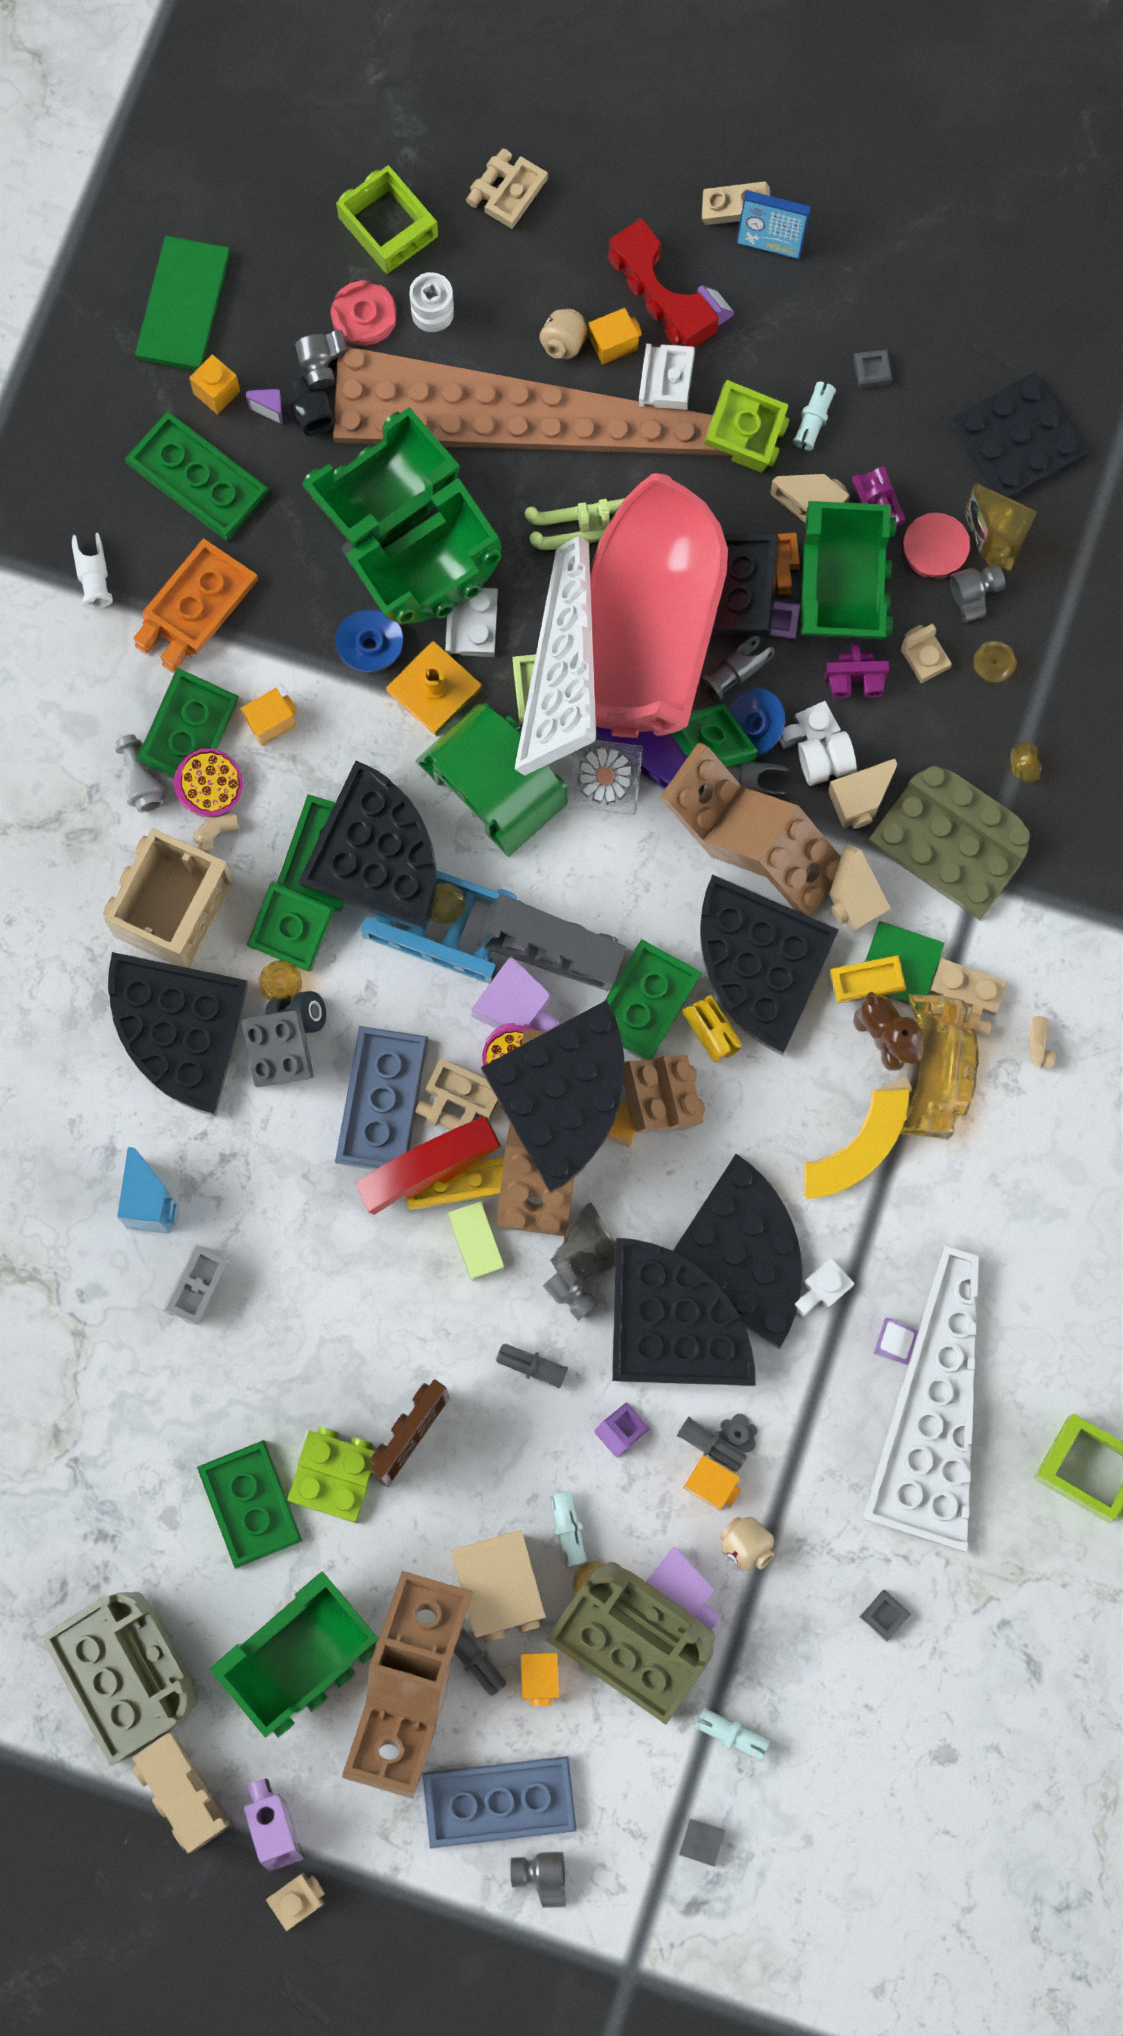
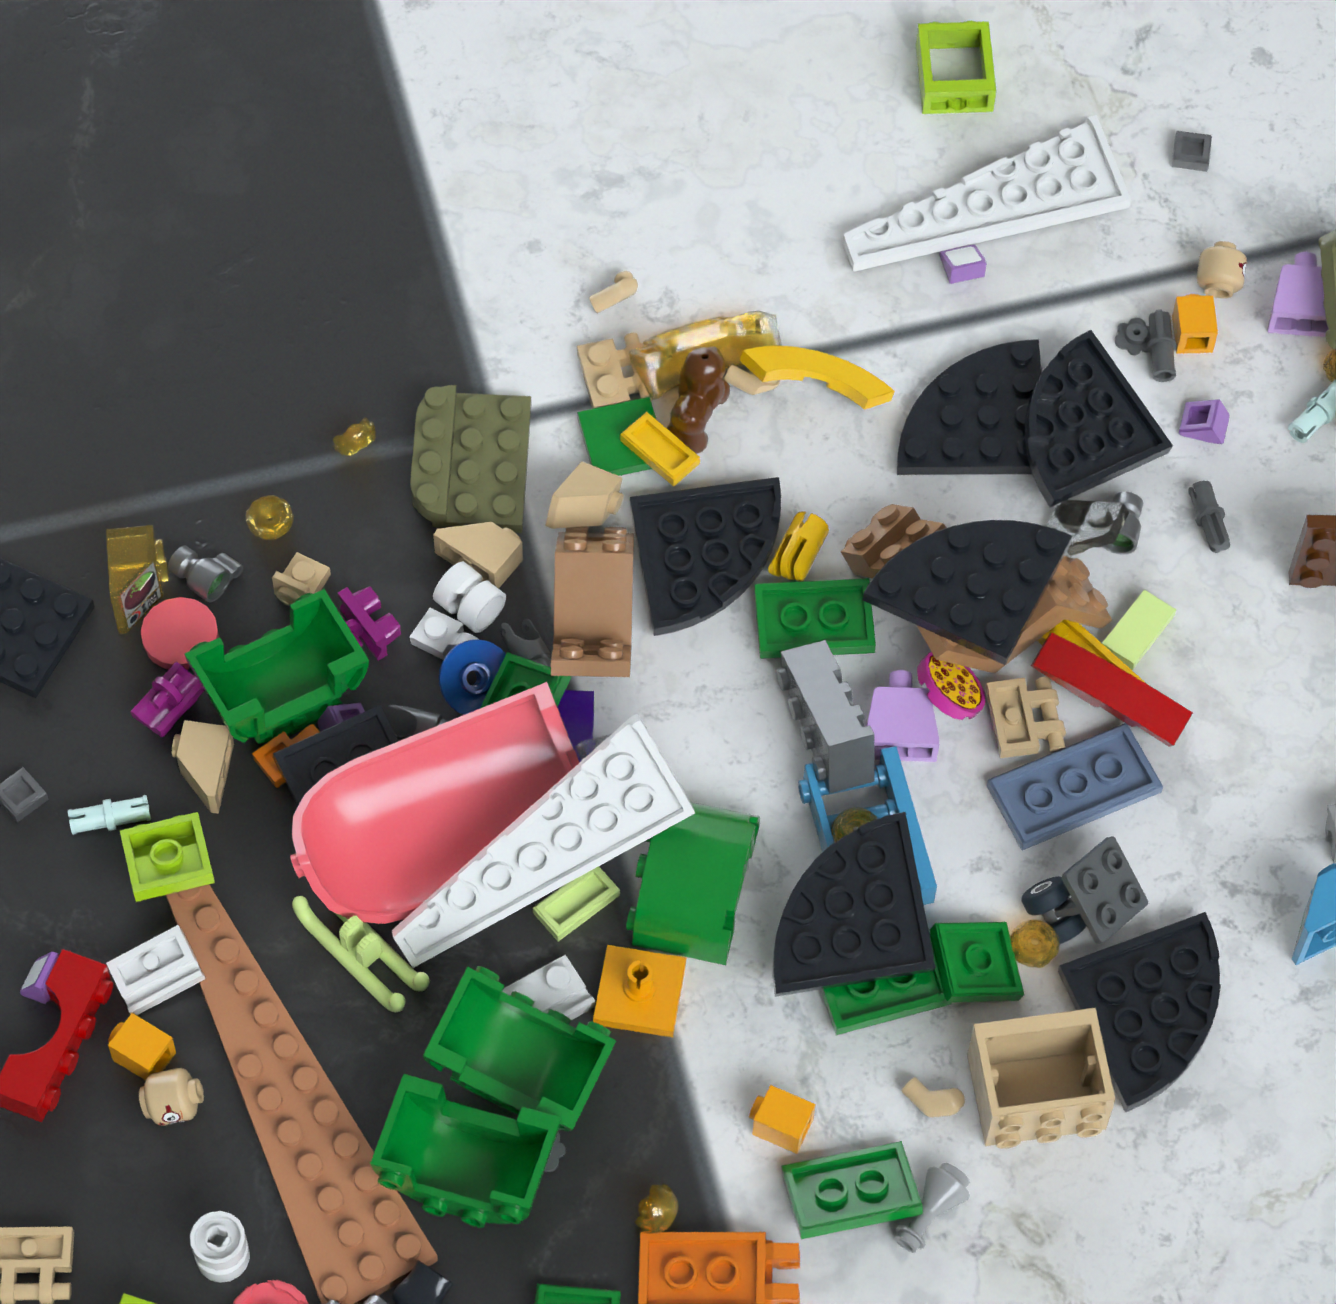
camera: 125 degrees left, 15 degrees down
(208, 782) = (893, 1130): tile -> none
(262, 594) = (657, 1209): none -> clear yellow plate
(366, 628) = (638, 1055): blue dish -> none
(825, 1286) = (958, 336): white plate -> none

